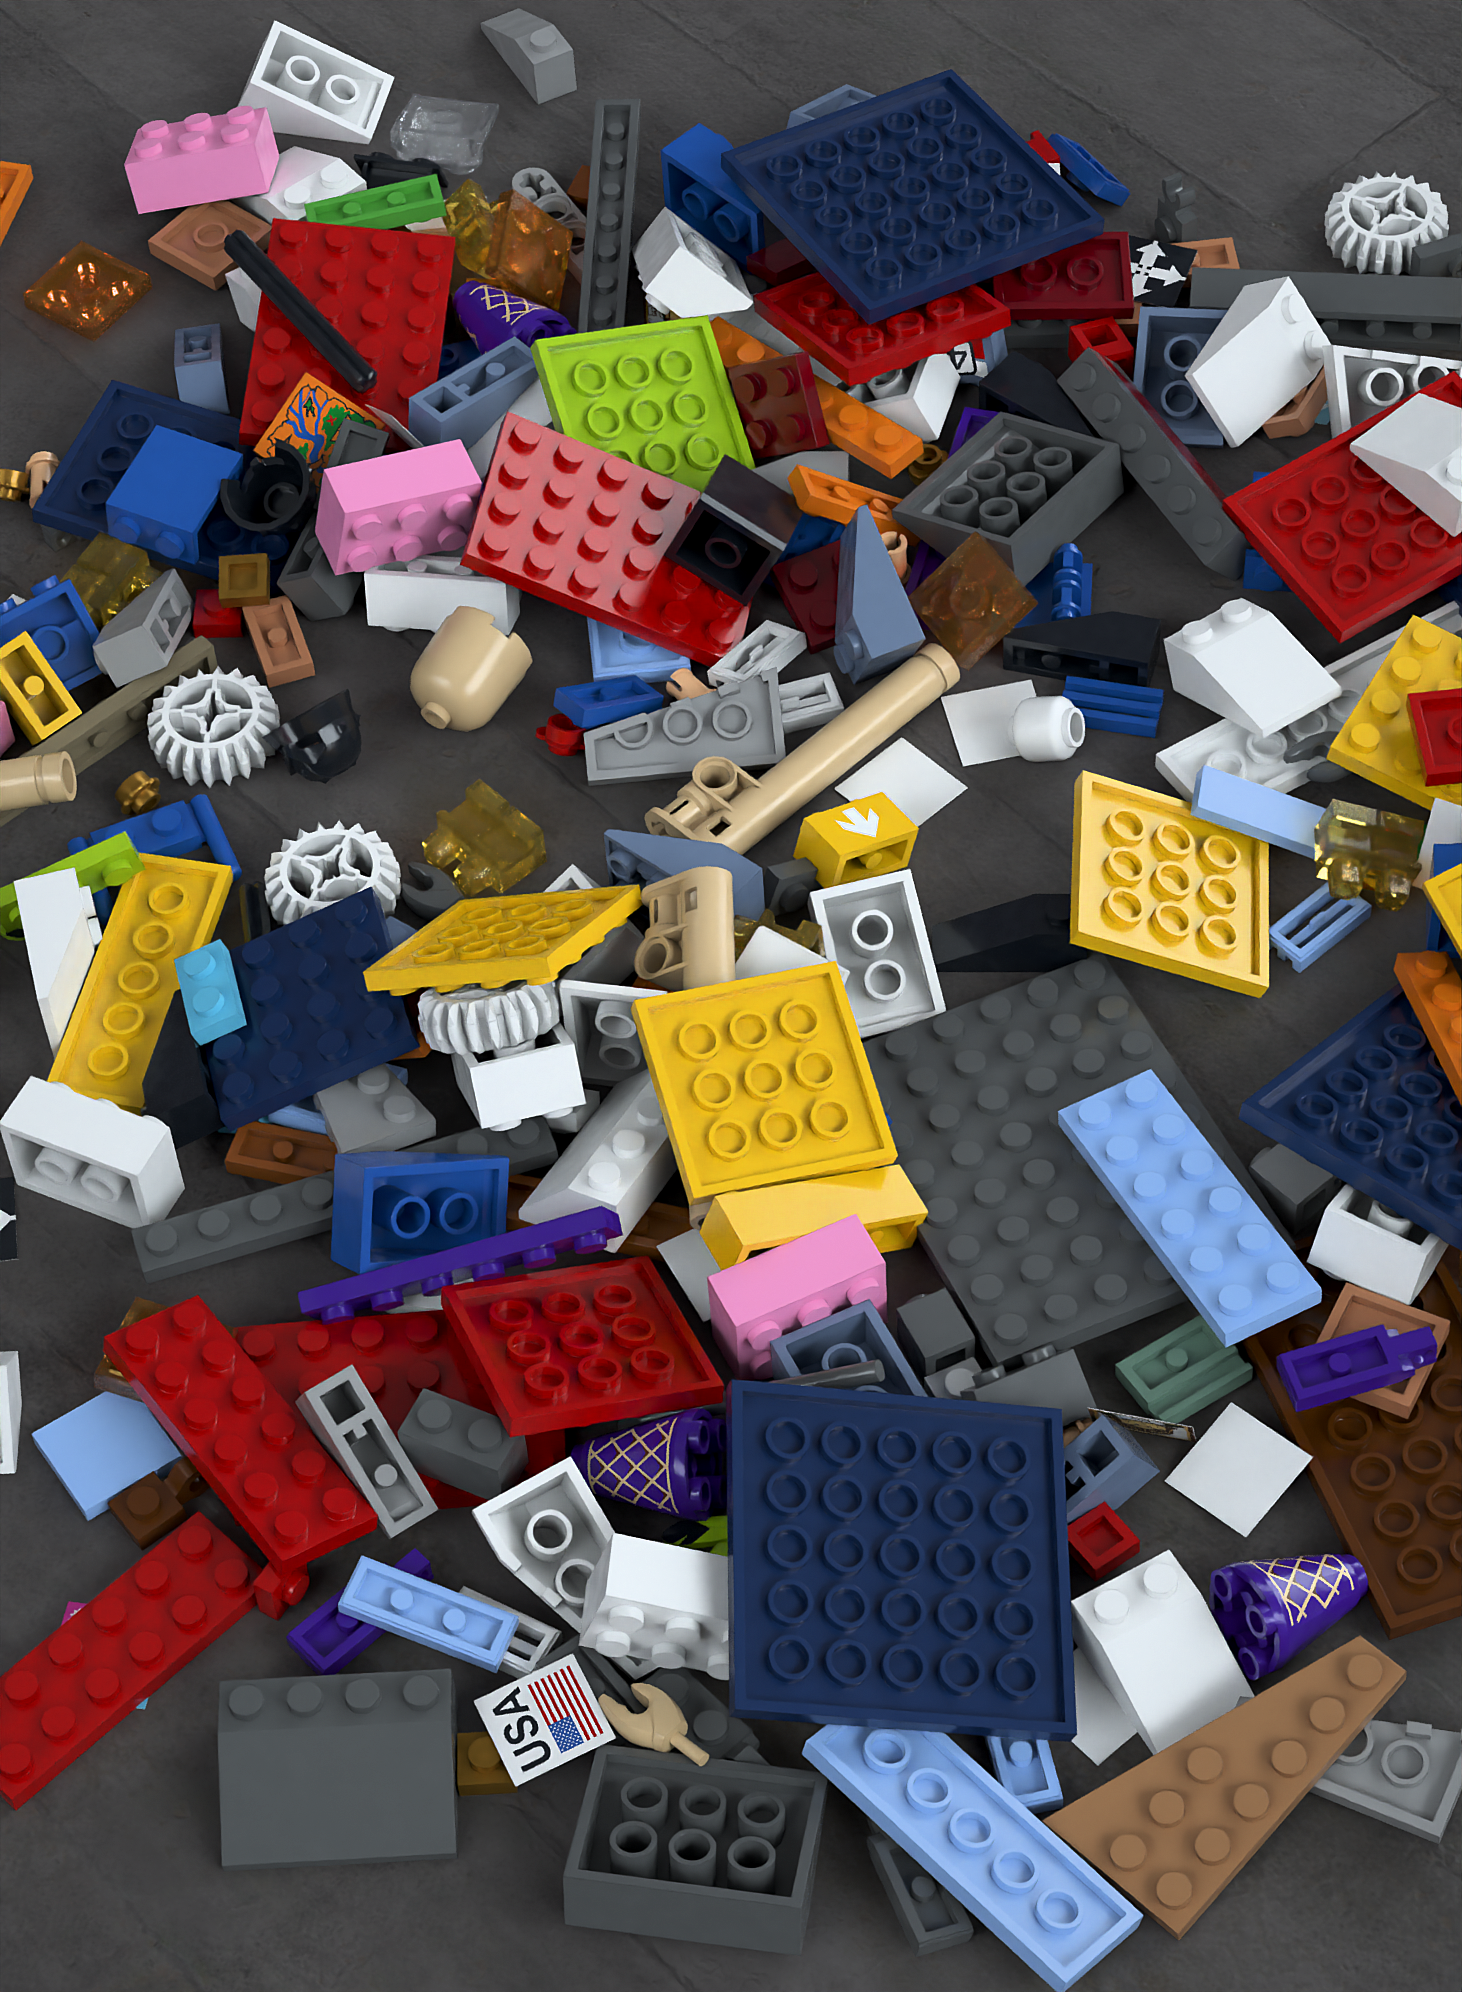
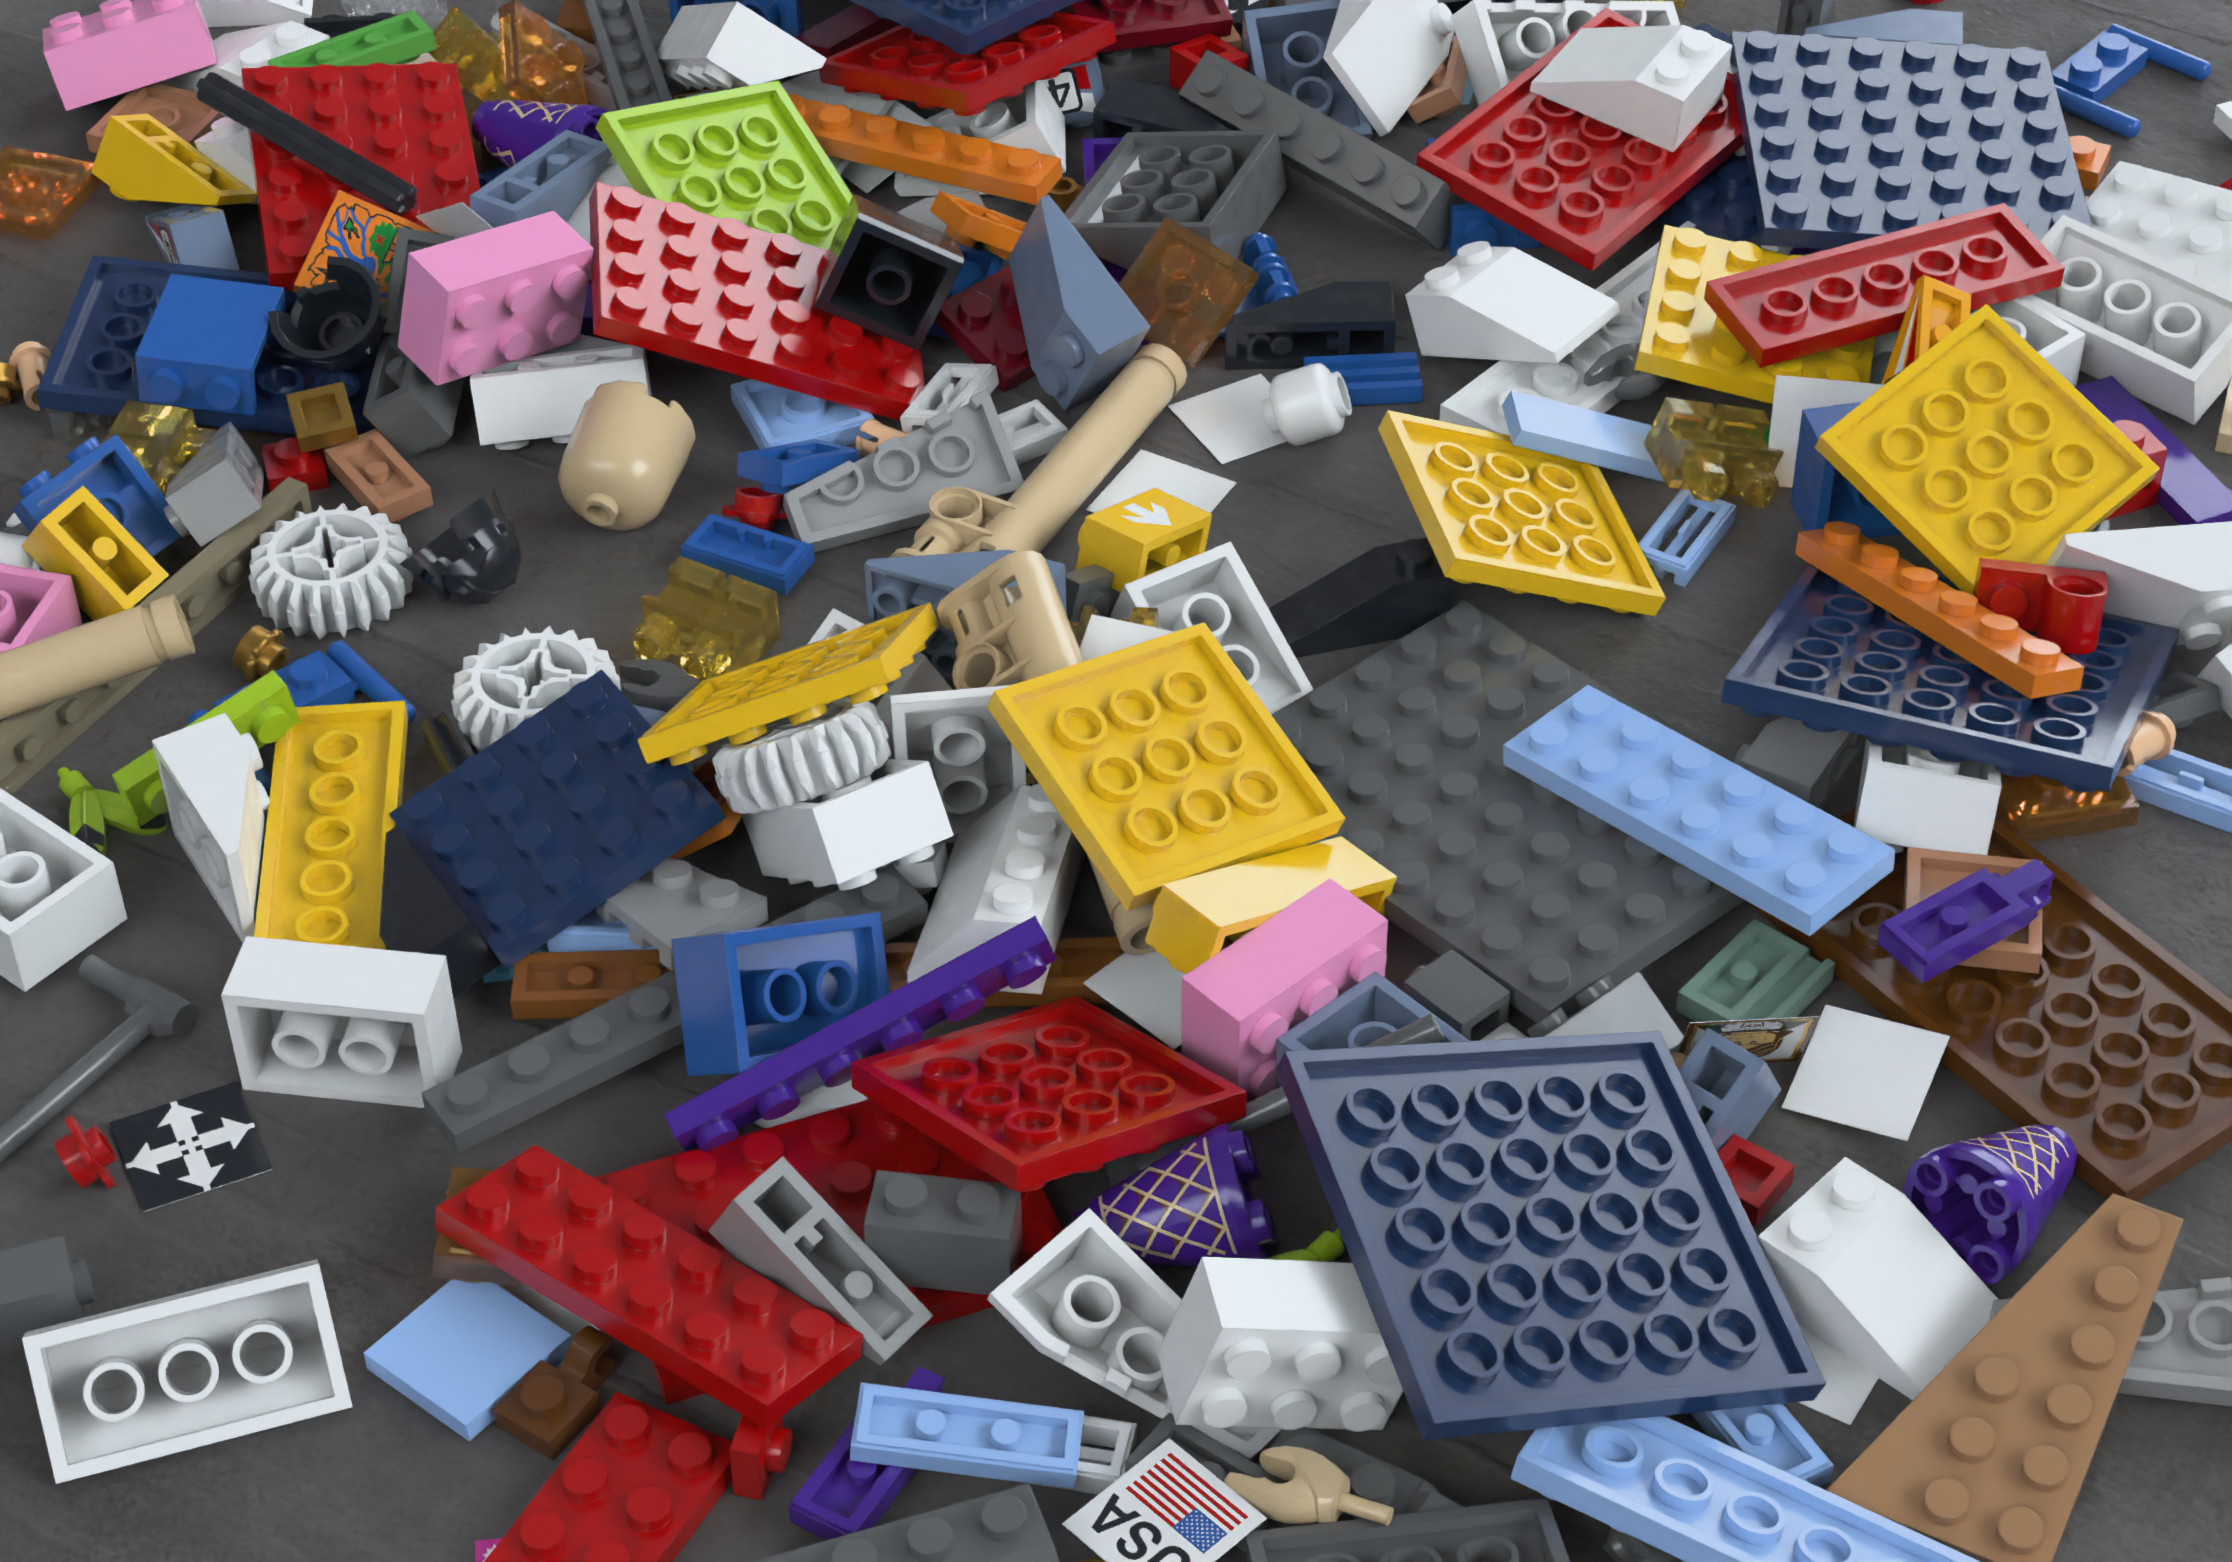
camera: 20 degrees left, 10 degrees down
(195, 292) = (154, 164): none -> yellow slope
(210, 992) = (435, 820): medium azure plate -> none
(542, 779) = (749, 553): none -> blue plate
(779, 405) = (888, 151): dark red plate -> none

